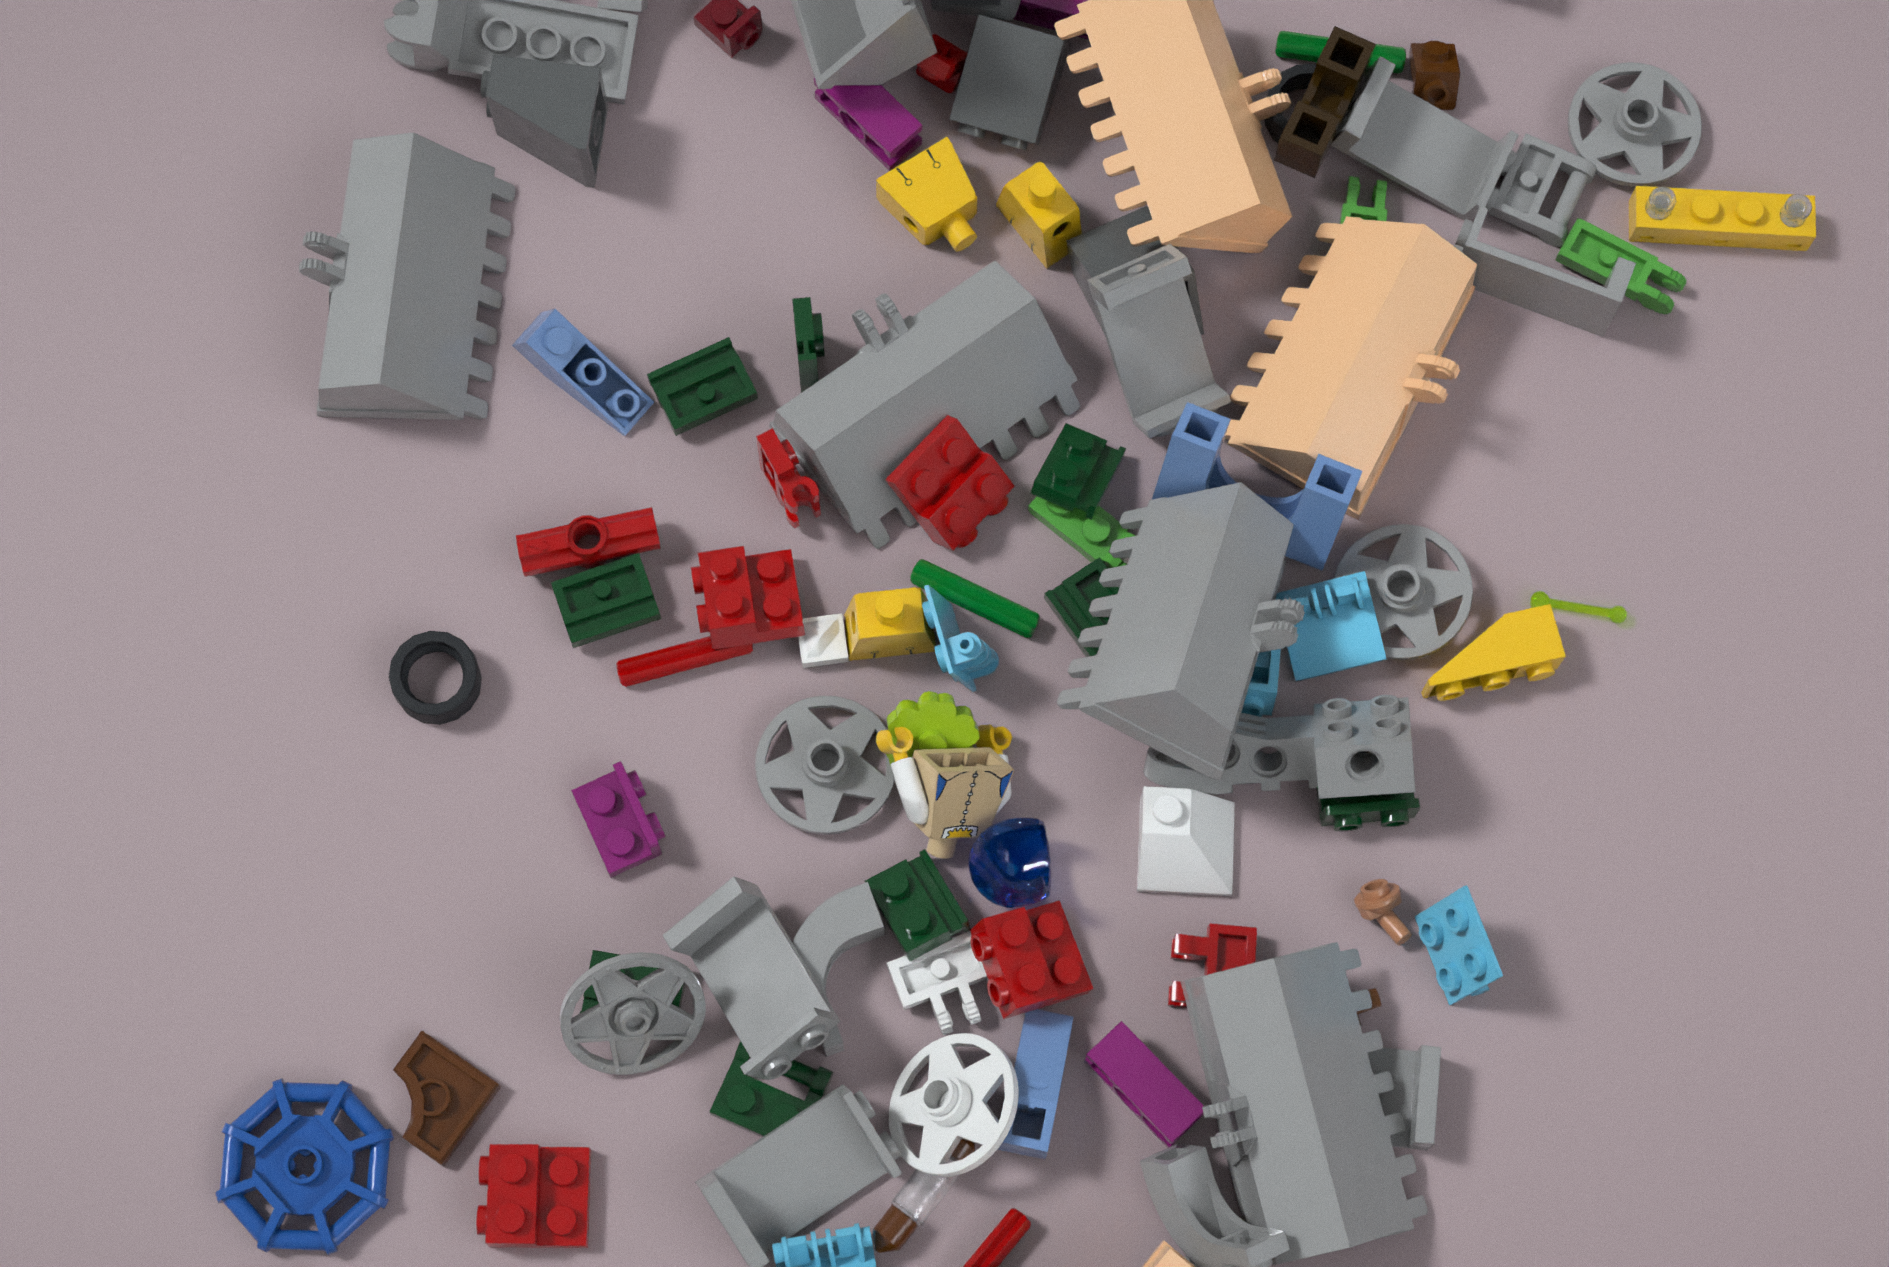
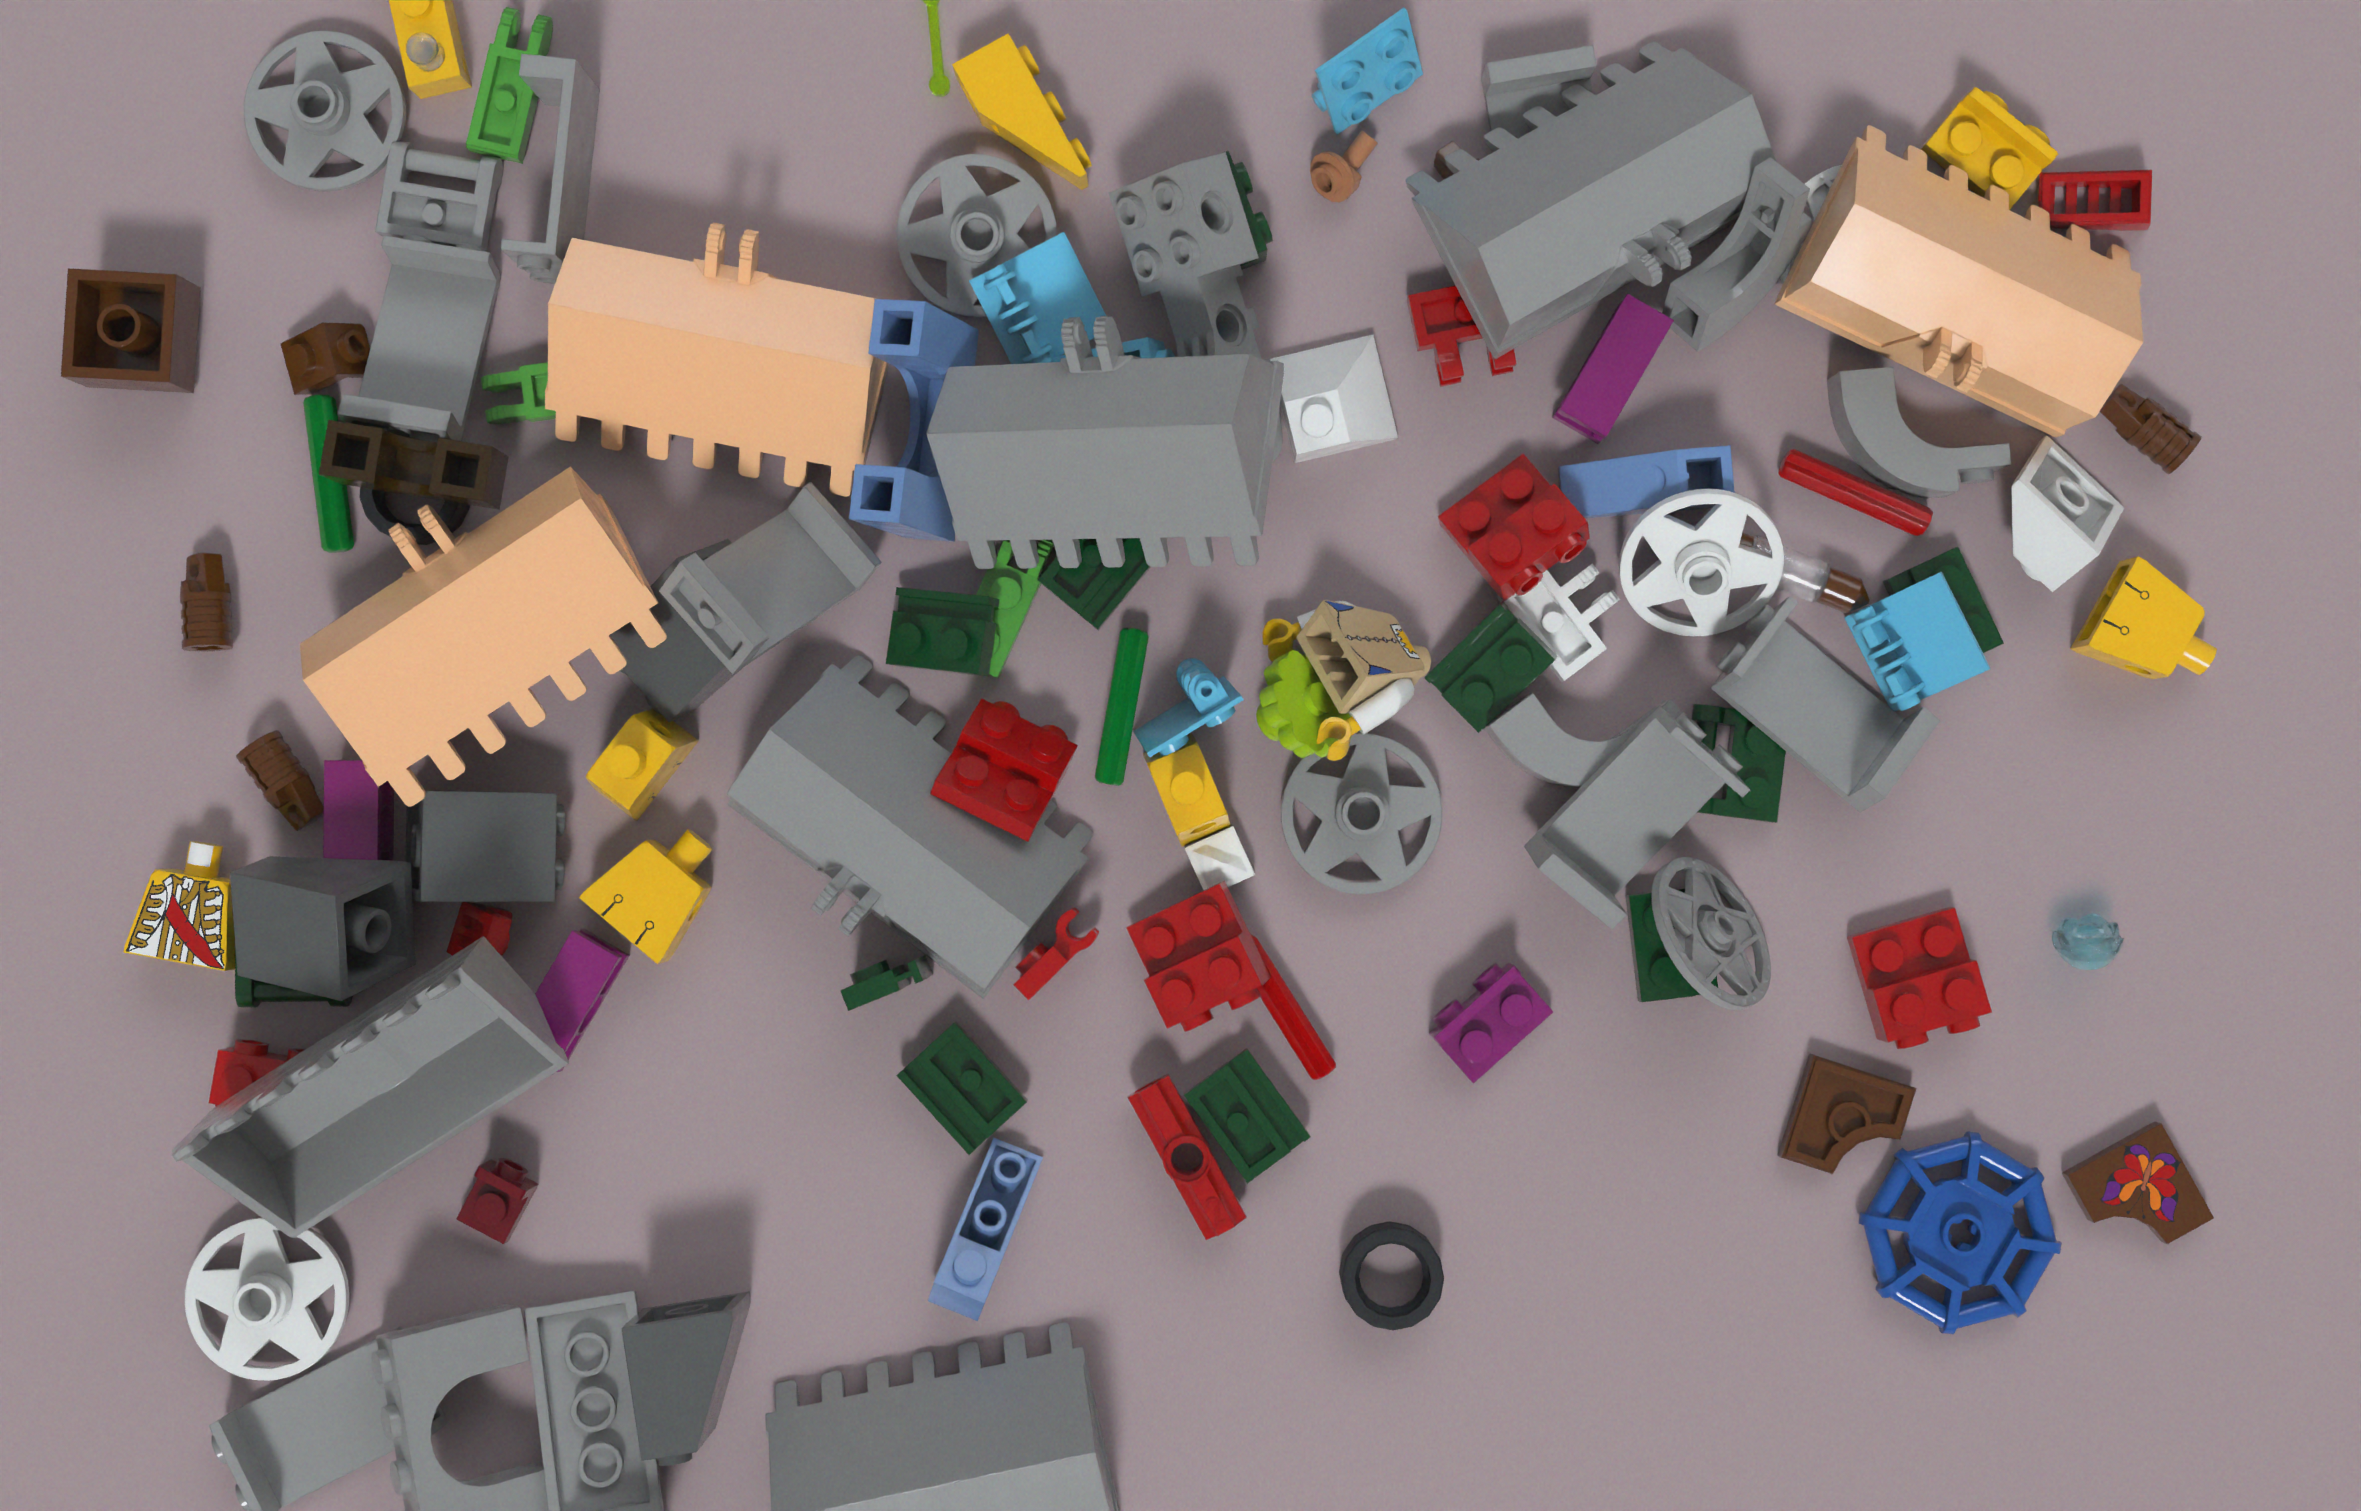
camera: 105 degrees left, 15 degrees up
(1012, 862) = (1420, 575): clear blue piece -> none

